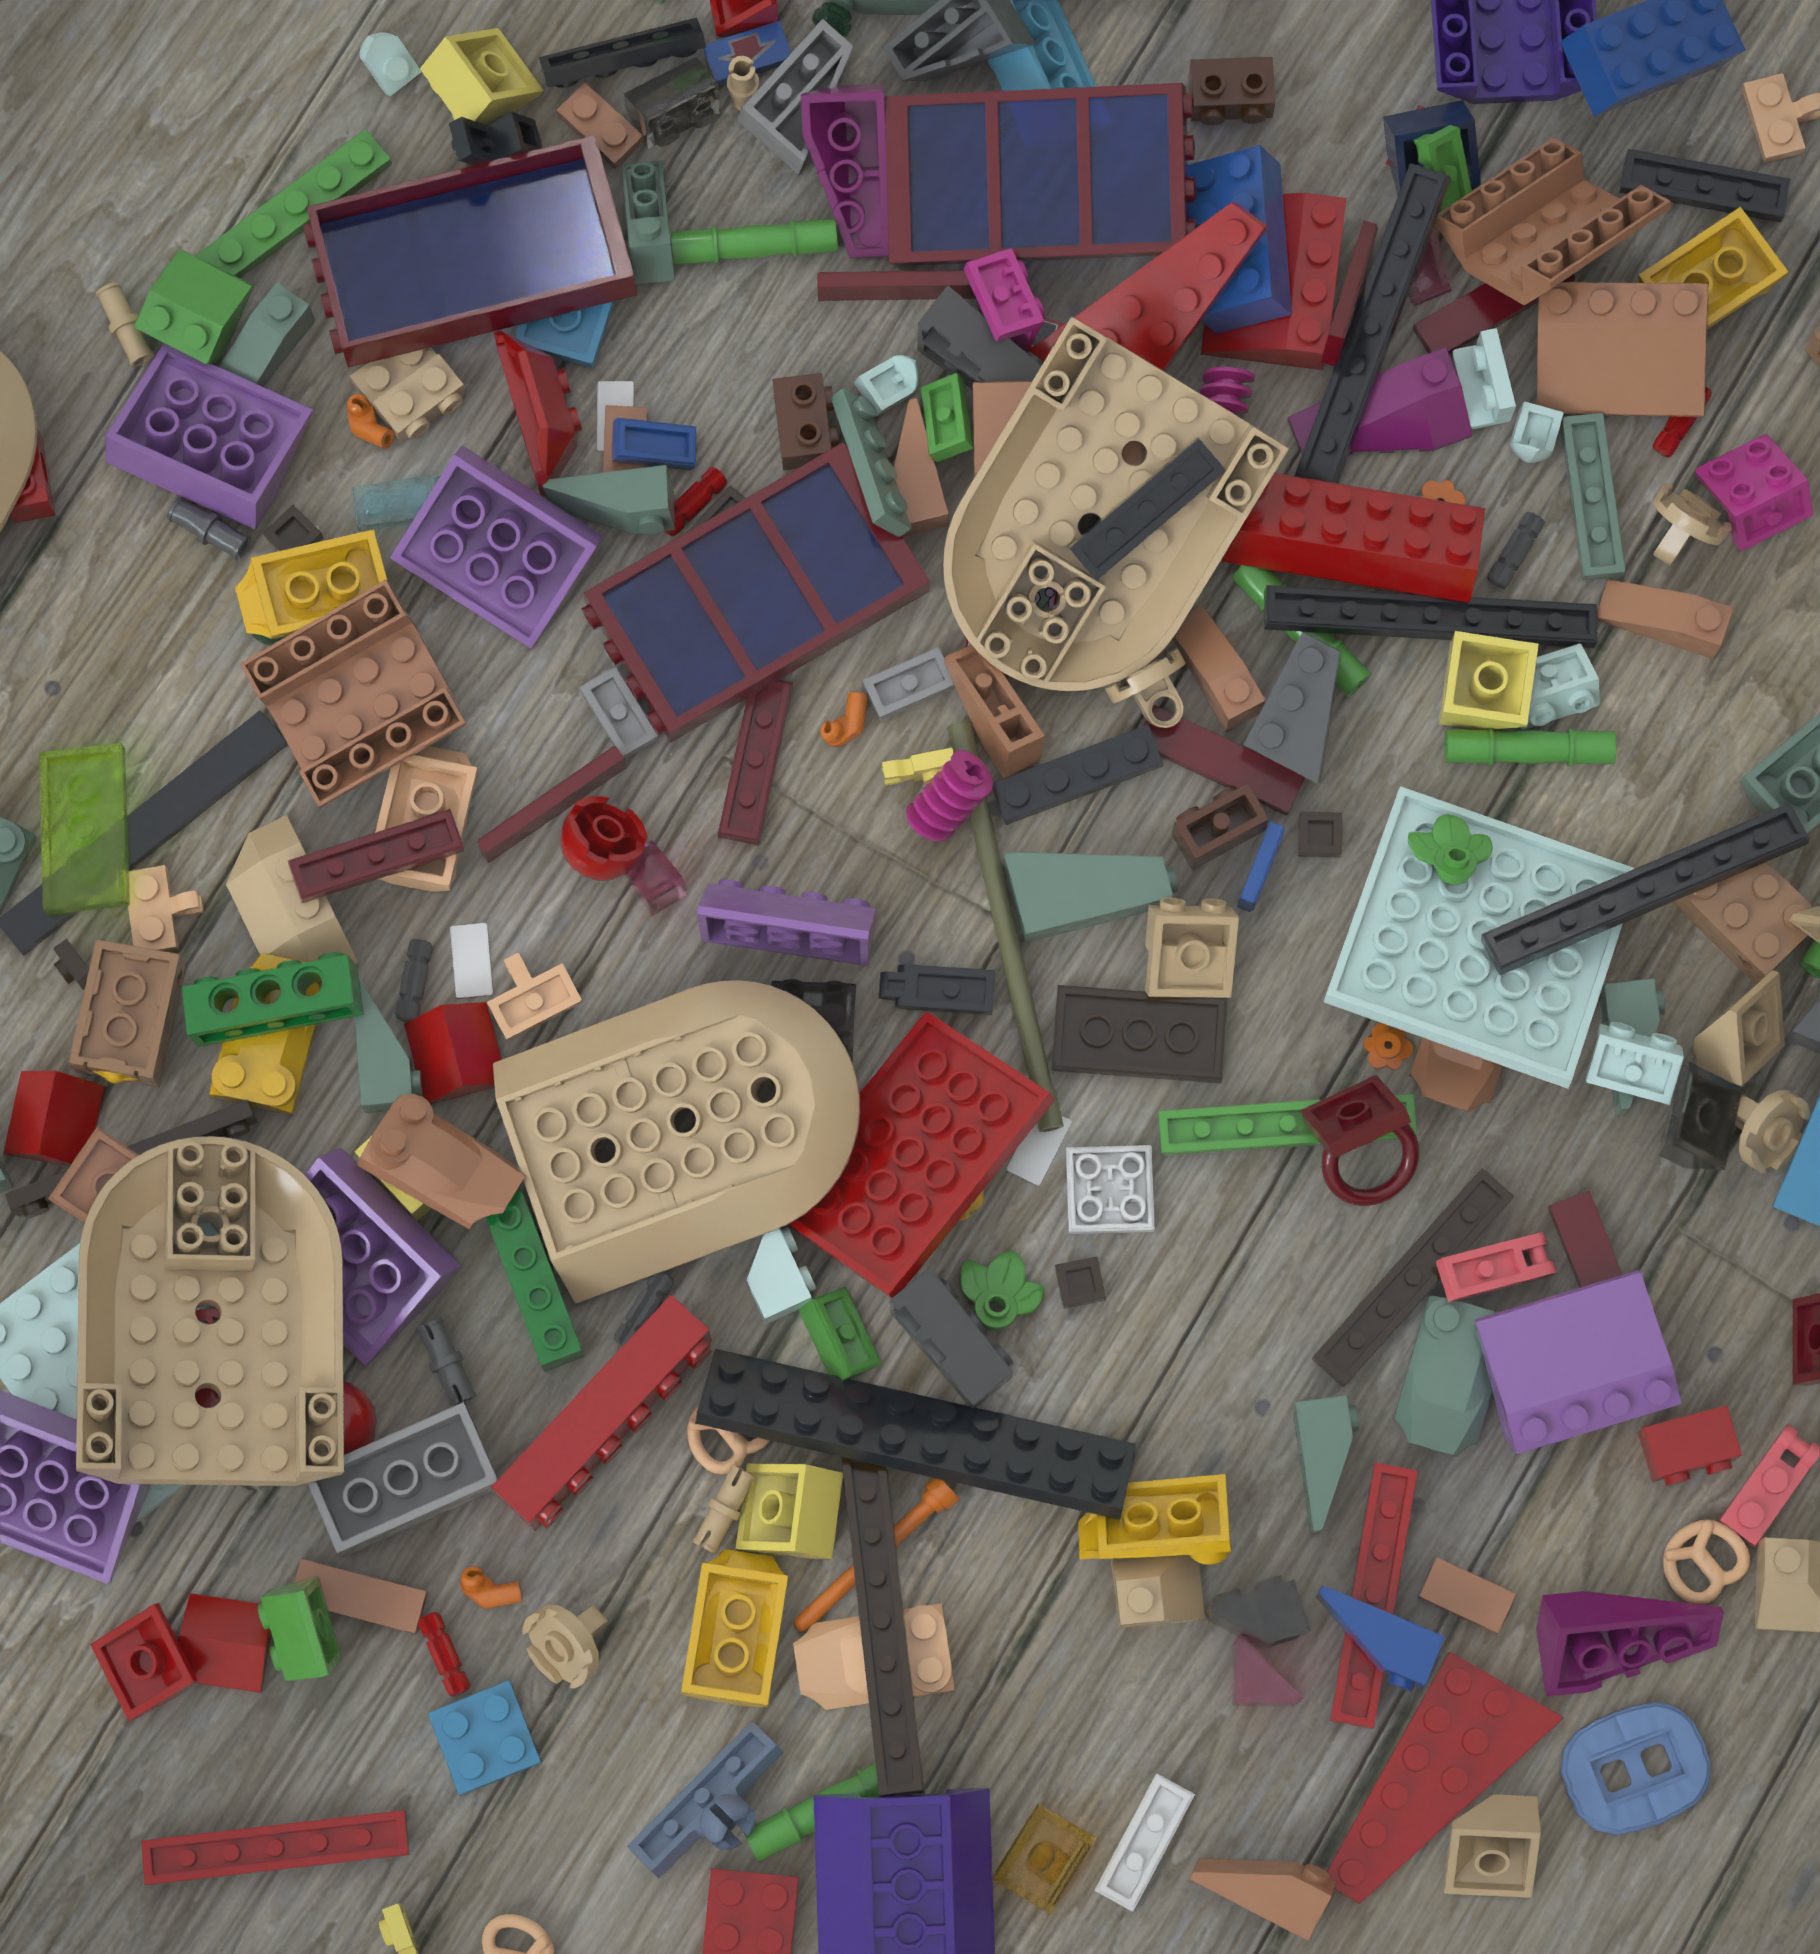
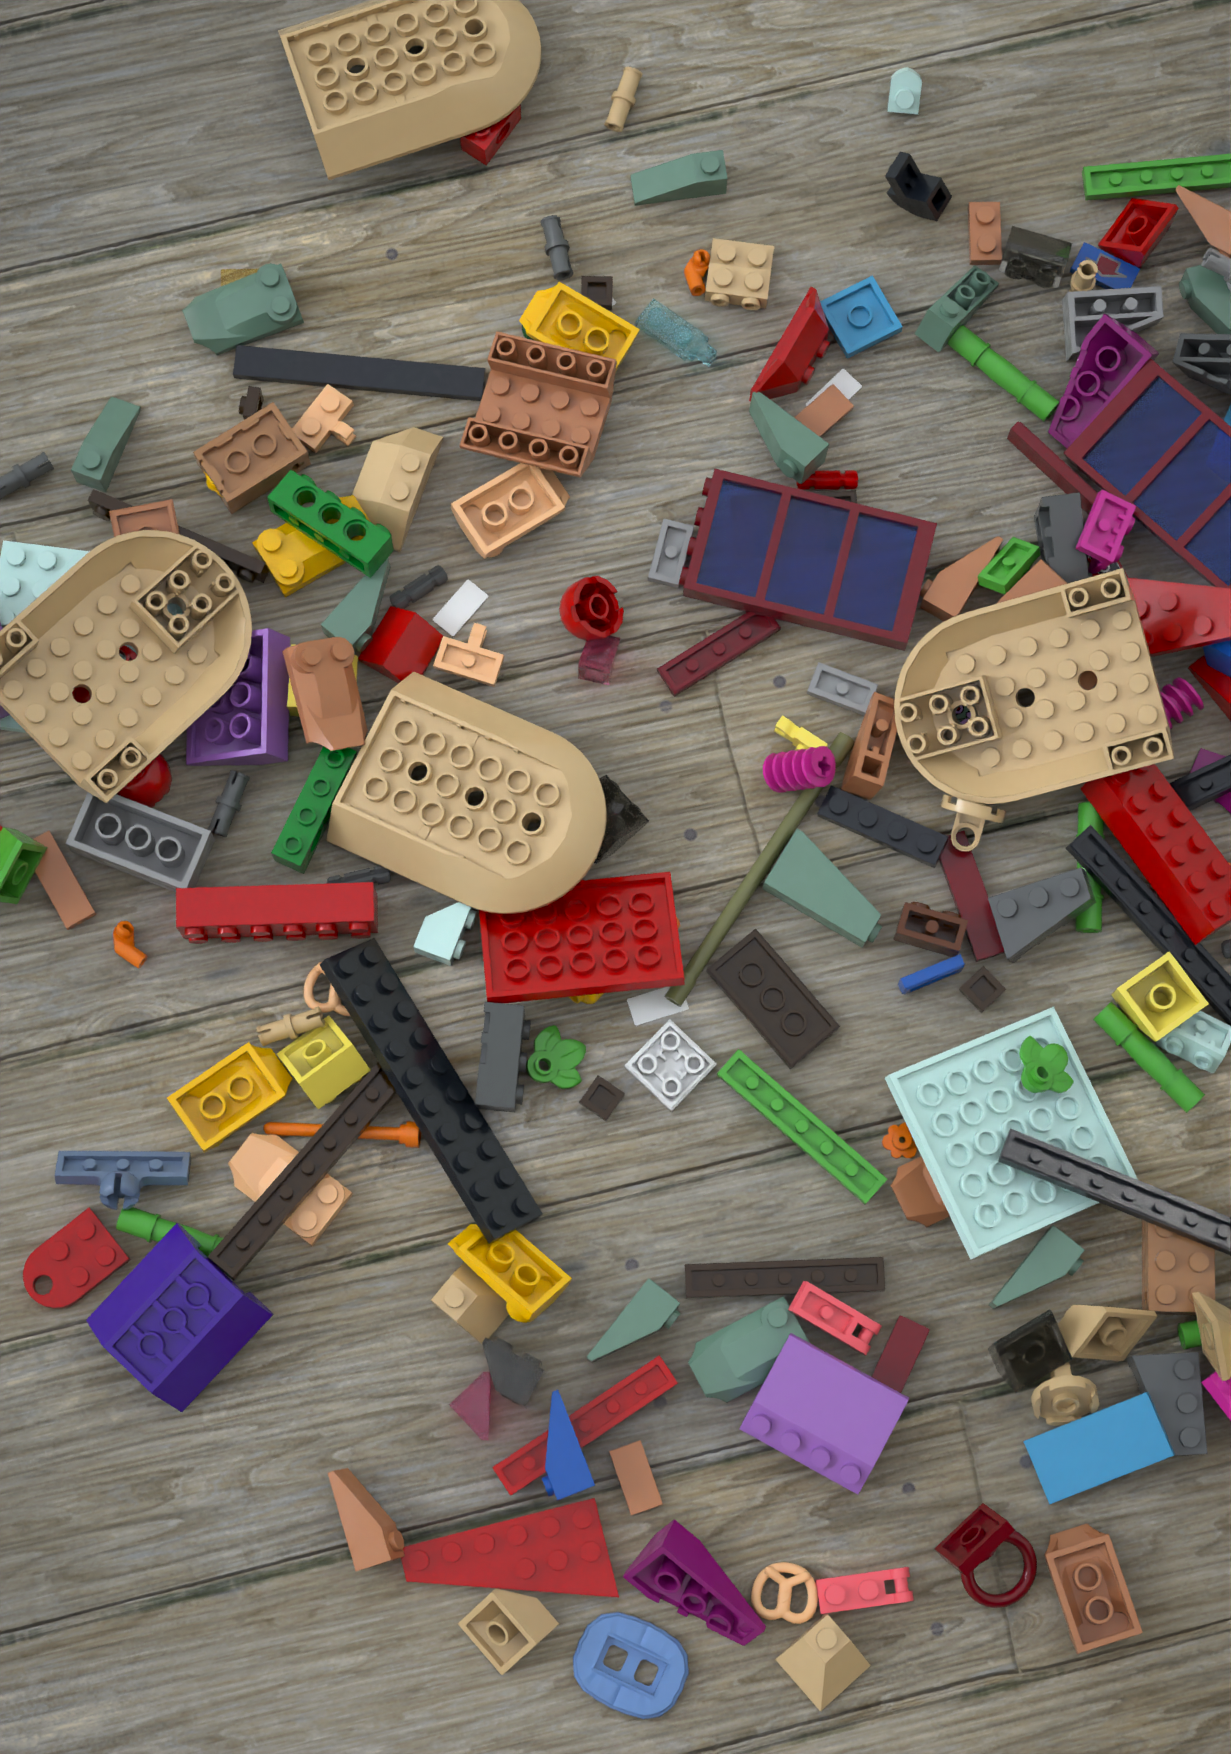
camera: 45 degrees right, 0 degrees up
(52, 1116) = (162, 474): red slope -> none
(84, 828) = (330, 341): clear neon green tile -> none
(194, 307) = (666, 123): bright green slope -> none
(207, 436) = (605, 197): medium lavender slope -> none
(285, 213) = (763, 122): bright green plate -> none
(376, 856) = (461, 500): dark red tile -> none
(444, 1654) = (70, 954): red axle -> none
(469, 252) = (843, 232): clear blue window -> none
(480, 76) = (946, 145): light yellow slope -> none
(484, 1738) = (46, 1019): dark azure plate -> none
(496, 546) = (696, 401): medium lavender slope -> none
(551, 804) = (585, 565): dark red tile -> none
(564, 1643) = (134, 1010): tan tile -> none
(635, 49) = (1045, 210): black plate -> none
(654, 443) = (837, 428): blue tile -> none
(787, 923) = (642, 749): medium lavender slope -> none
(803, 418) = (931, 491): reddish brown brick -> none
(835, 16) = (1171, 295): clear green plate -> none
(839, 1335) = (447, 997): bright green slope -> none
(849, 725) = (788, 680): orange arm -> none
(871, 462) = (941, 549): sand green plate -> none
(889, 382) = (997, 518): light aqua plate -> none
(939, 989) = (689, 867): black hinge -> none
(1043, 1859) = (264, 1383): clear yellow slope -> none
(1144, 1842) = (327, 1429): white tile -> none
(1147, 508) = (1063, 716): black plate -> none
(1191, 949) = (846, 980): tan plate -> none
(1218, 670) = (1018, 844): nougat slope -> none
(1356, 1119) = (838, 1160): dark red tile -> none
(1635, 1062) = (1024, 1283): light aqua bracket -> none
(1690, 1445) = (841, 1522): red brick -> none

